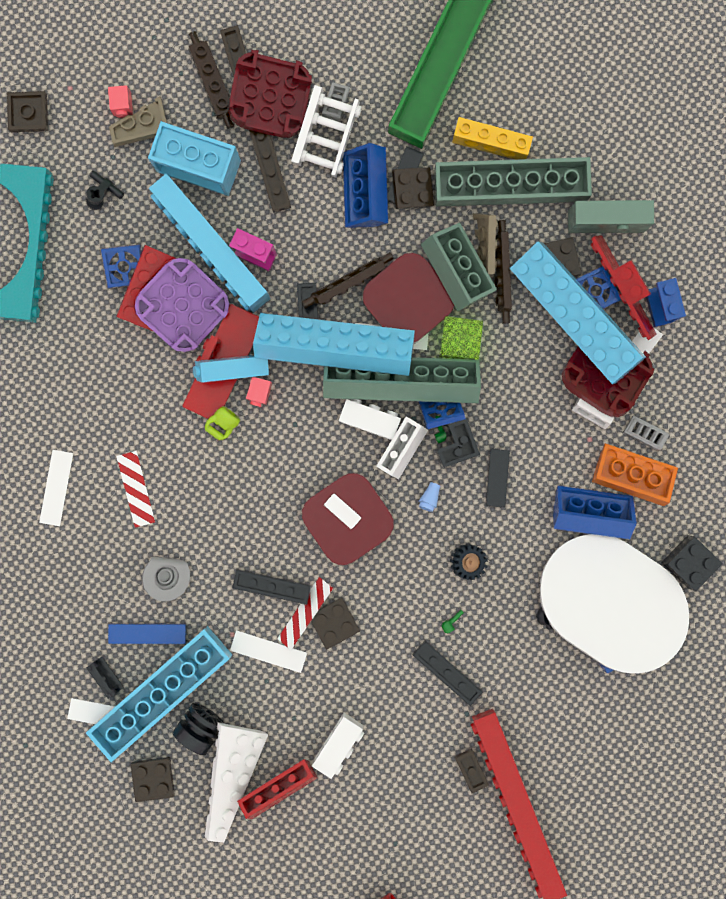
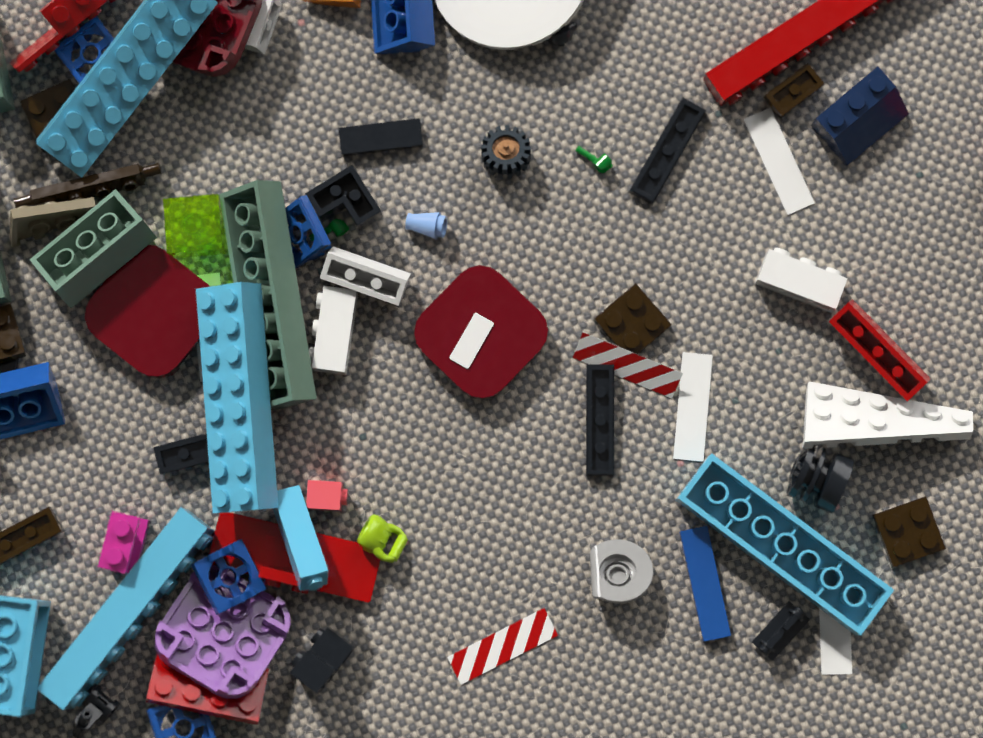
camera: 105 degrees left, 5 degrees down
(145, 363) = (322, 660): none -> black brick
(150, 214) = (97, 707): none -> black piece
(224, 298) = (217, 601): none -> blue piece
(349, 280) = (142, 400): dark brown plate -> none
(425, 748) = (779, 161): none -> white sticker
(444, 813) = (861, 116): none -> dark blue slope

